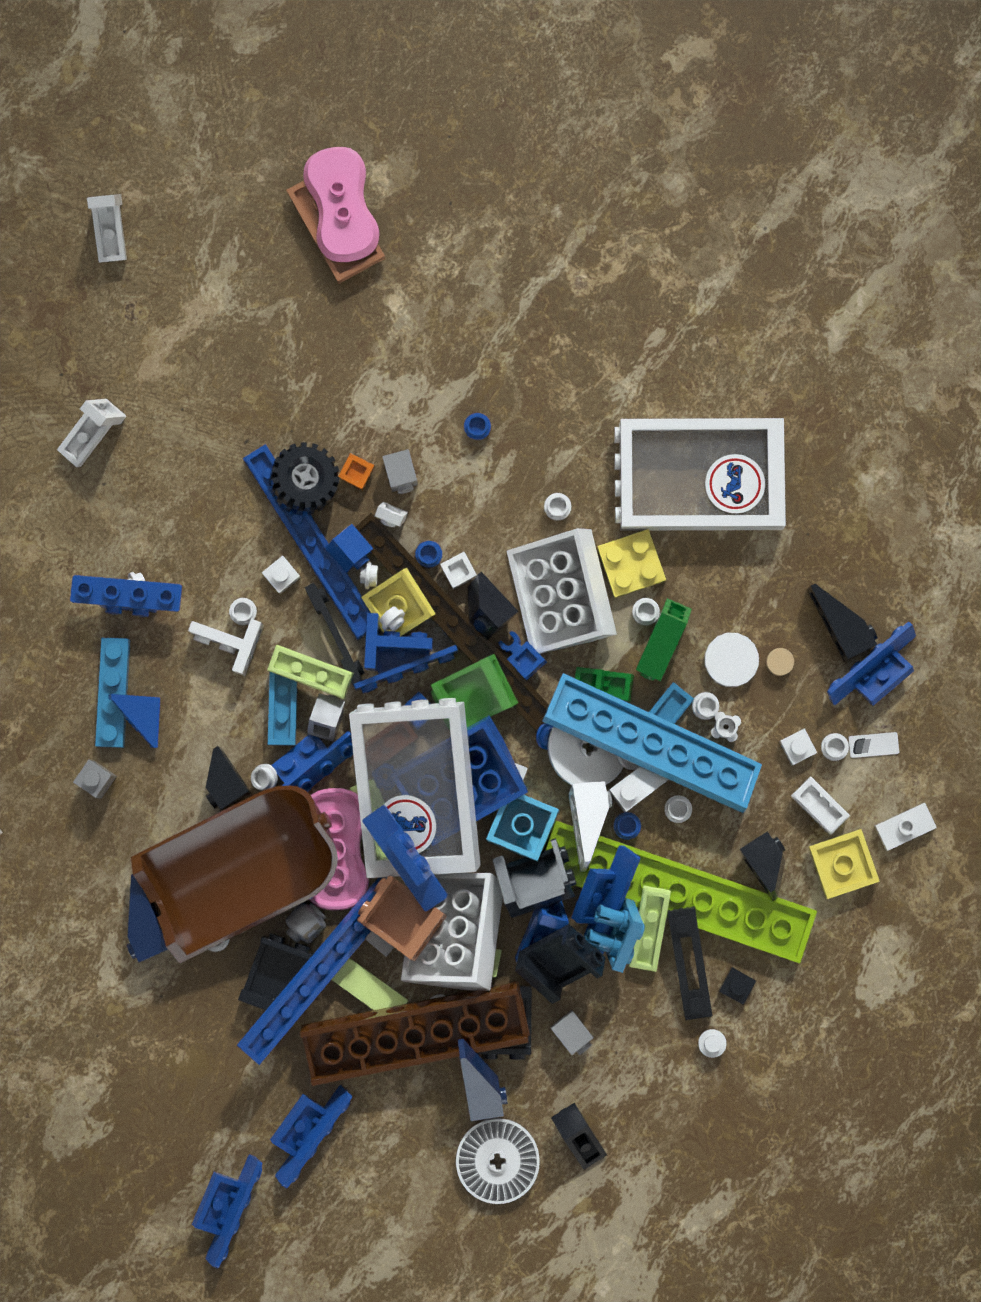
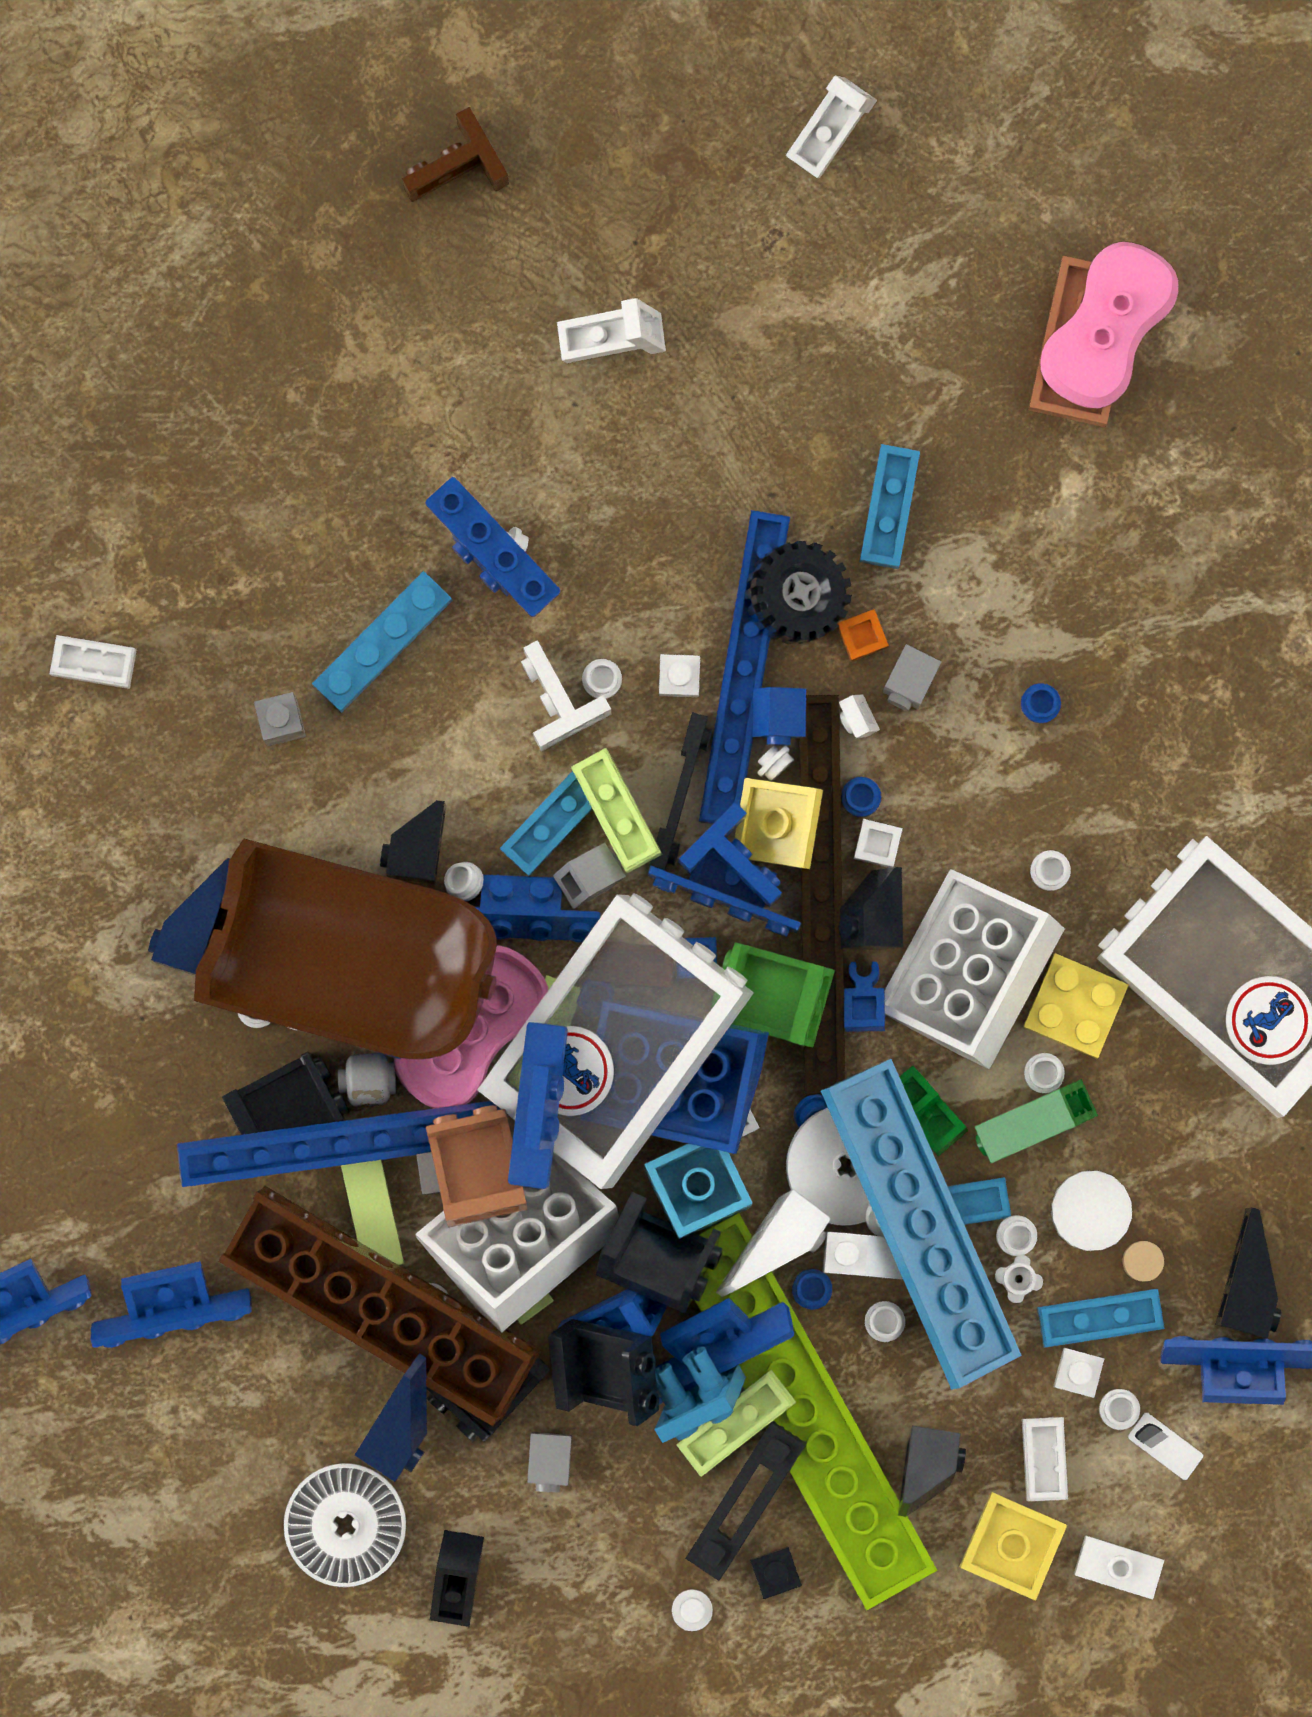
camera: 40 degrees right, 0 degrees up
(141, 713) = (392, 693): blue tile -> none
(311, 394) = (889, 506): none -> dark azure plate
(392, 619) = (756, 833): white plate -> none
(784, 709) = (1100, 1318): none -> dark azure tile

